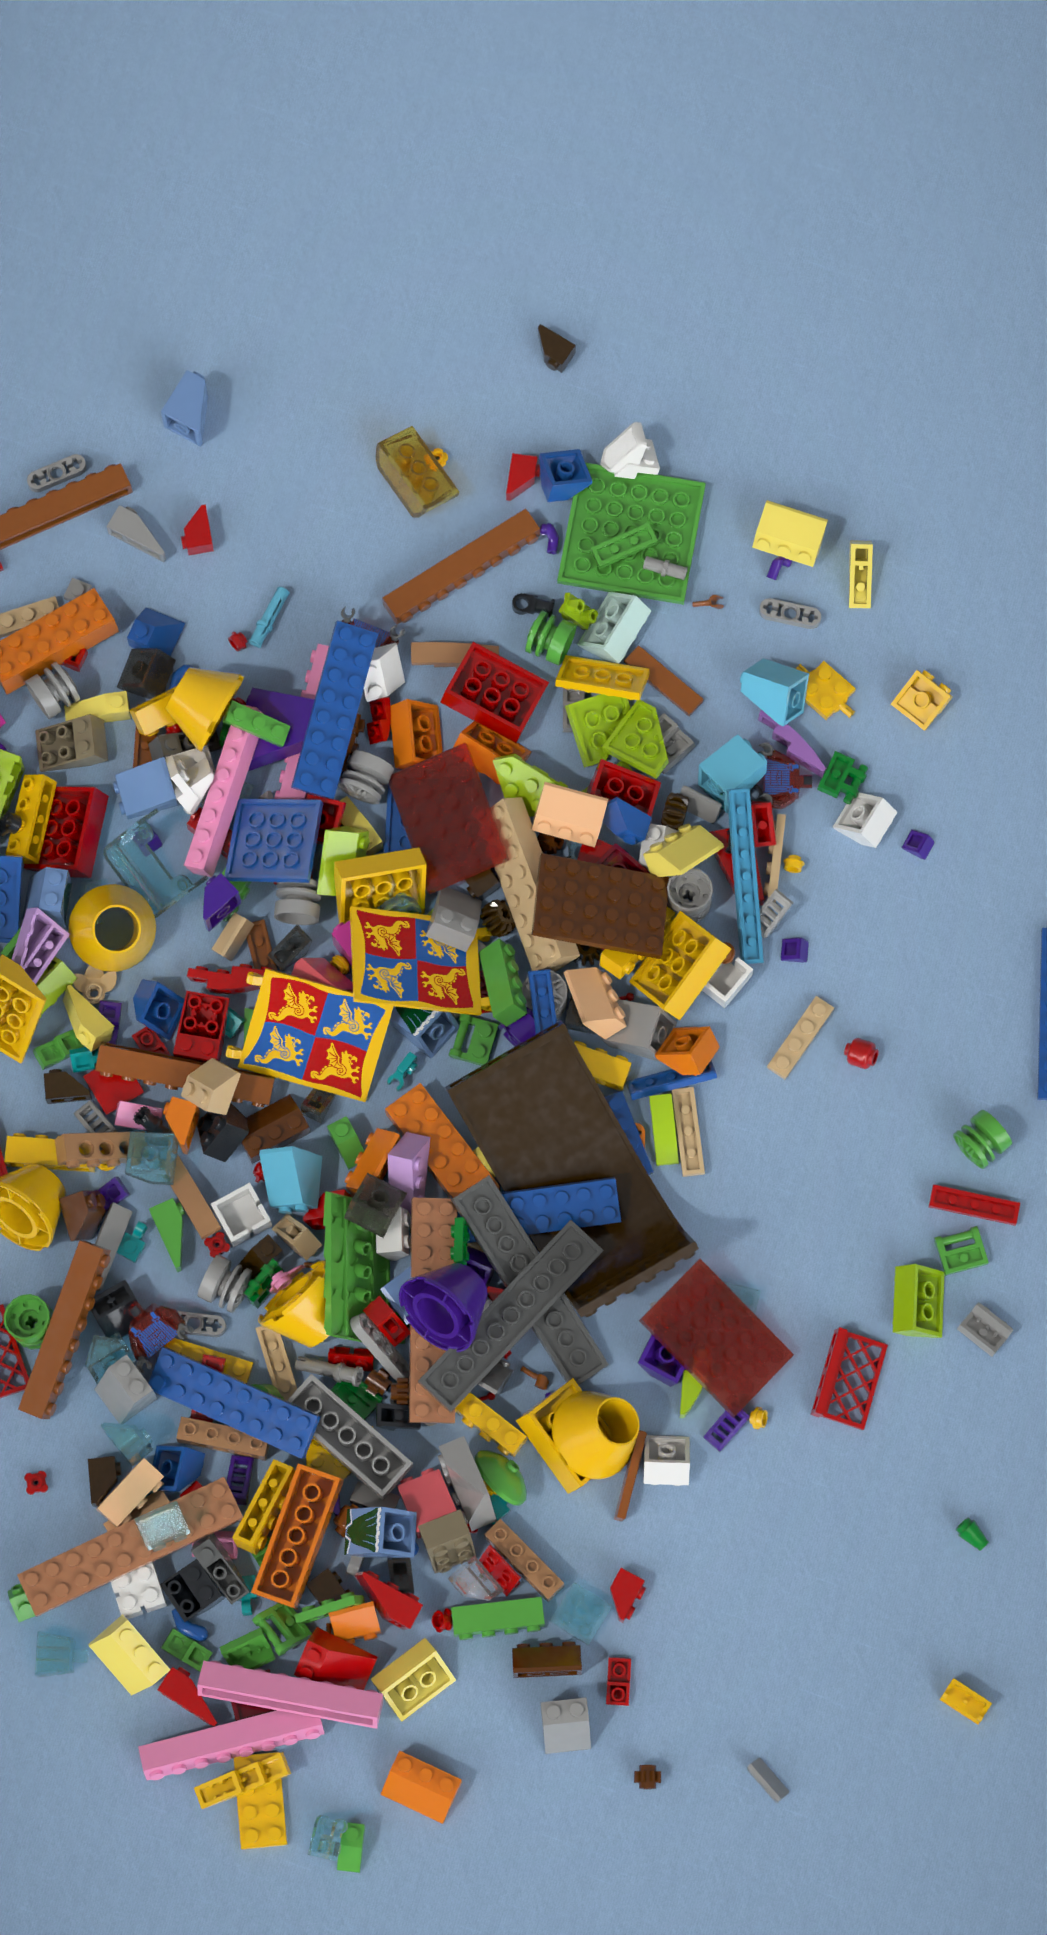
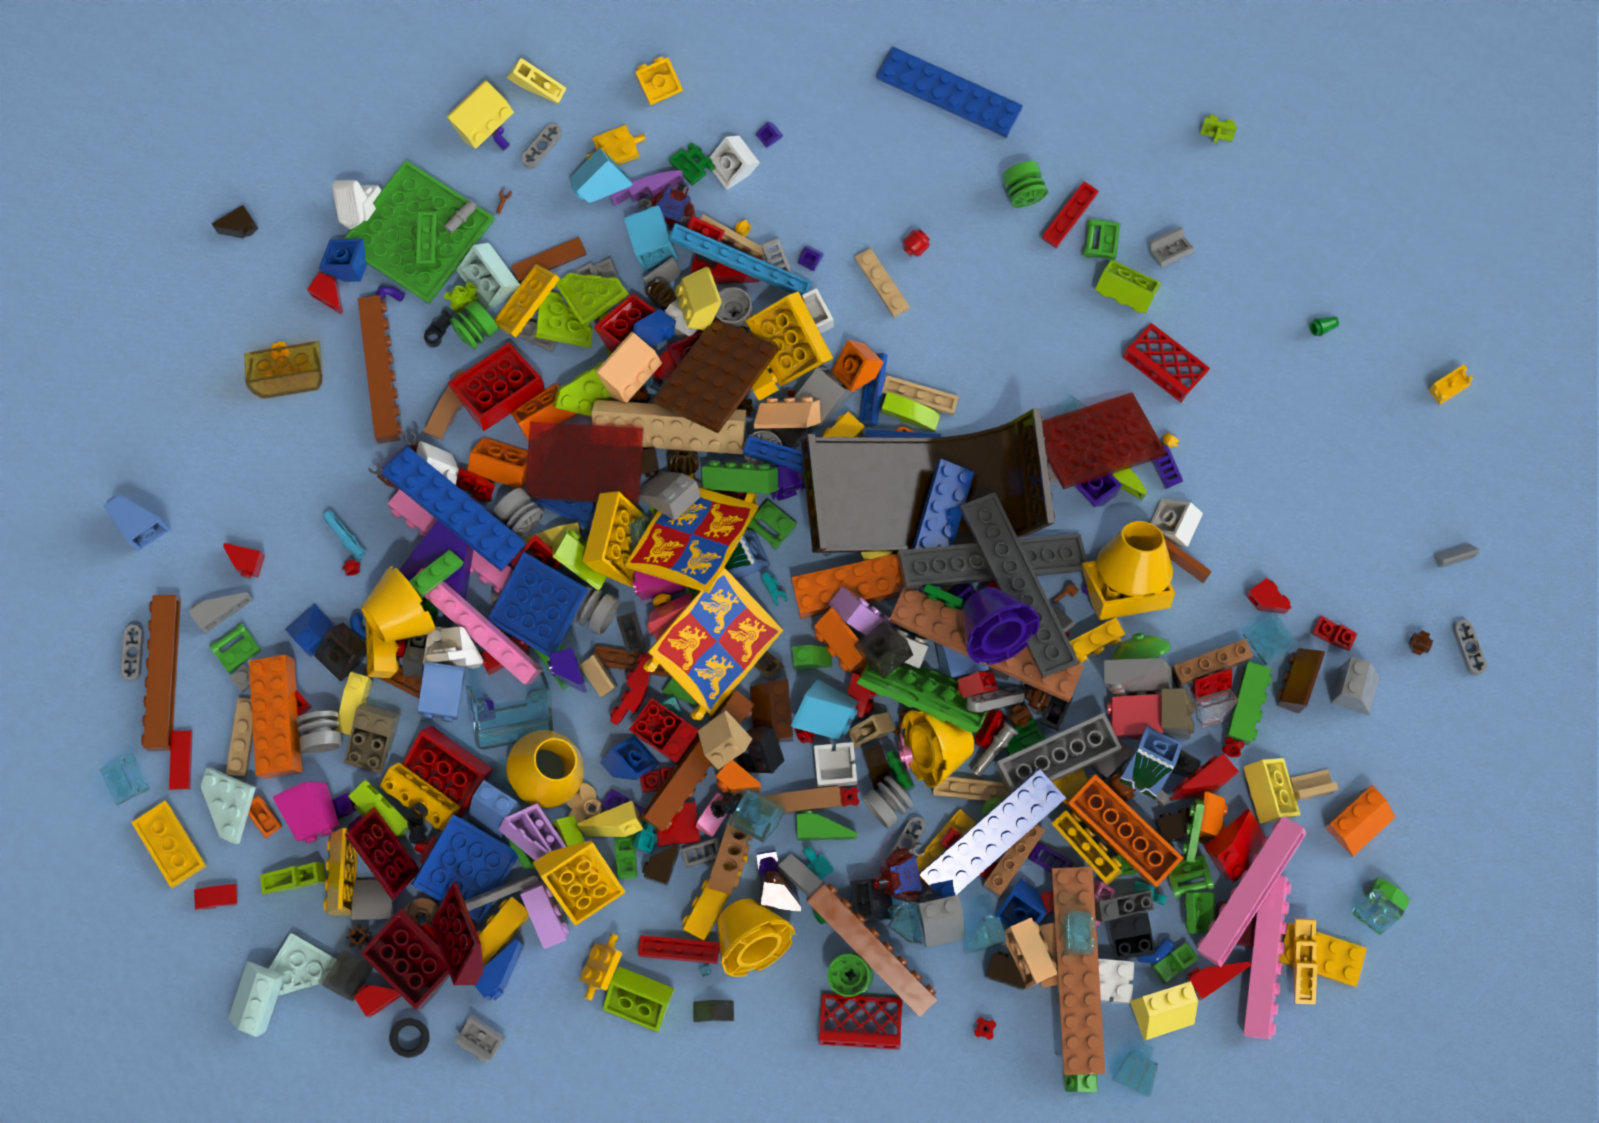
camera: 65 degrees left, 0 degrees up
(102, 575) = (238, 653): none -> bright green plate
(439, 1721) = (1313, 785): none -> tan panel
(677, 1818) = (1480, 657): none -> light grey beam

